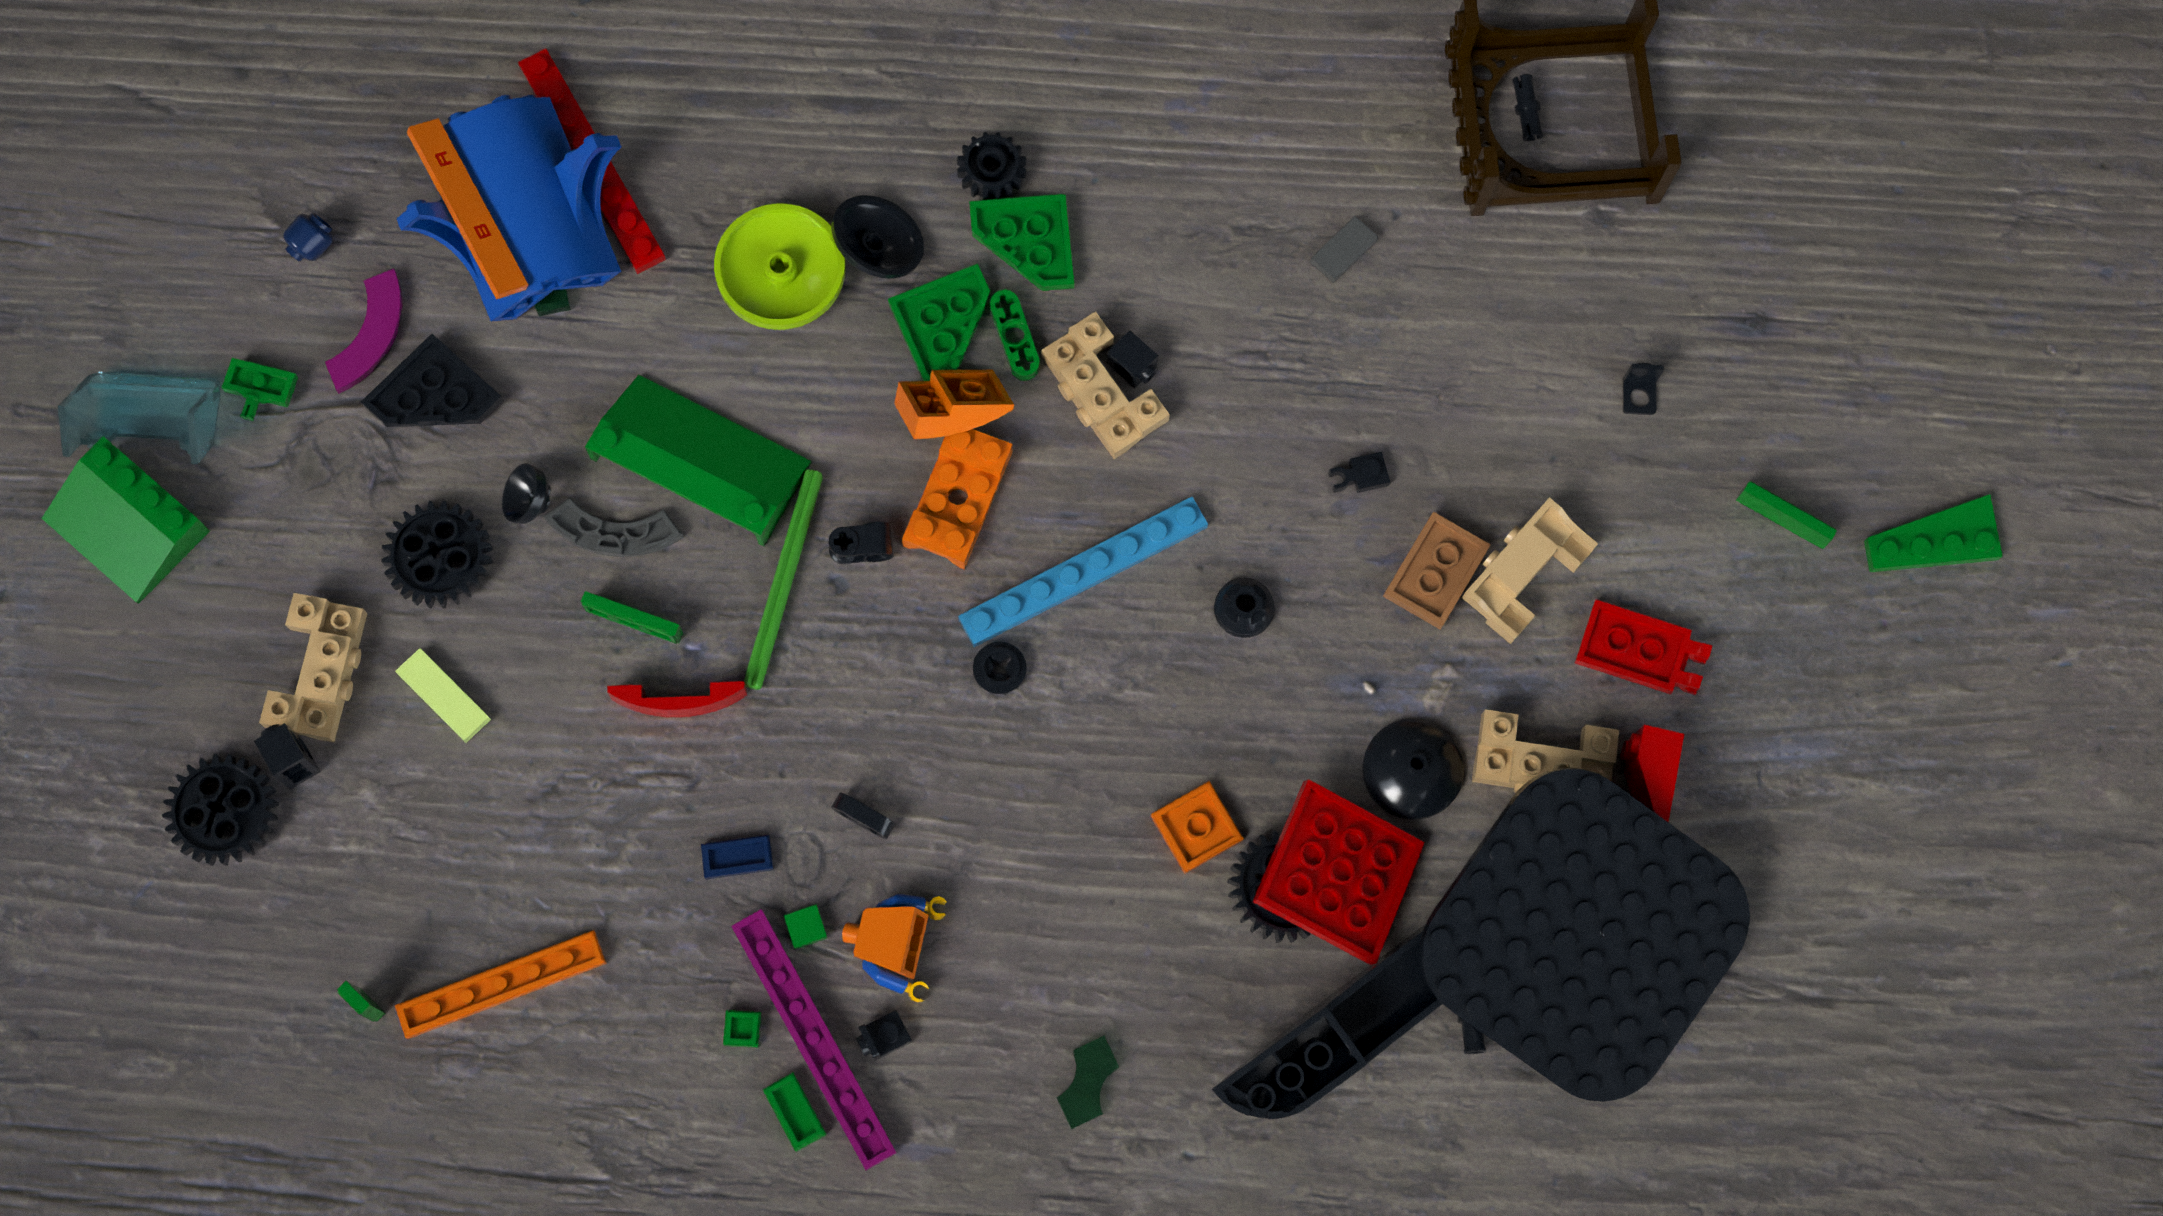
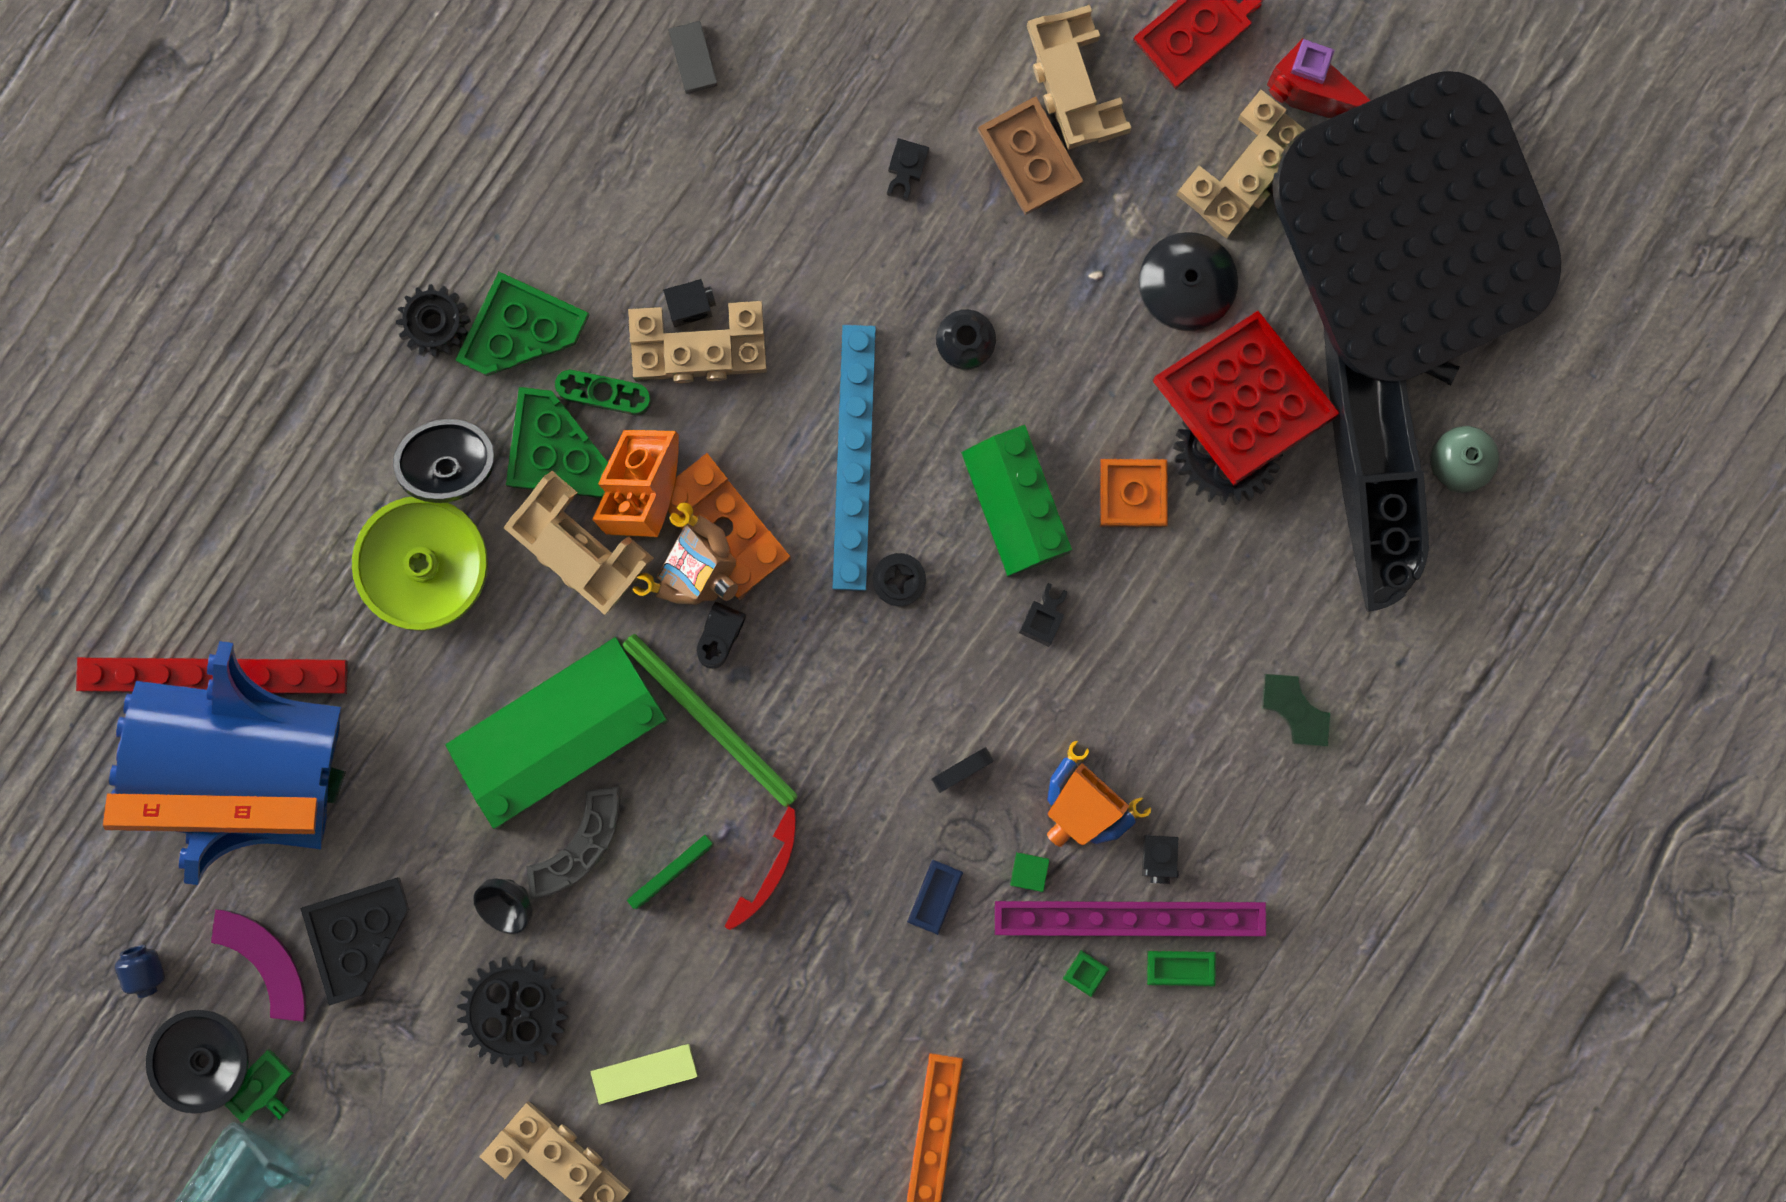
camera: 55 degrees left, 10 degrees up
(243, 308) = (175, 1066): none -> black dish
(862, 379) = (571, 550): none -> tan bracket
(911, 486) = (697, 564): none -> torso
(1036, 810) = (1042, 619): none -> black plate
(1128, 728) = (1016, 500): none -> green slope
(1392, 1102) = (1460, 470): none -> sand green cylinder
(1669, 753) = (1312, 61): none -> medium lavender tile

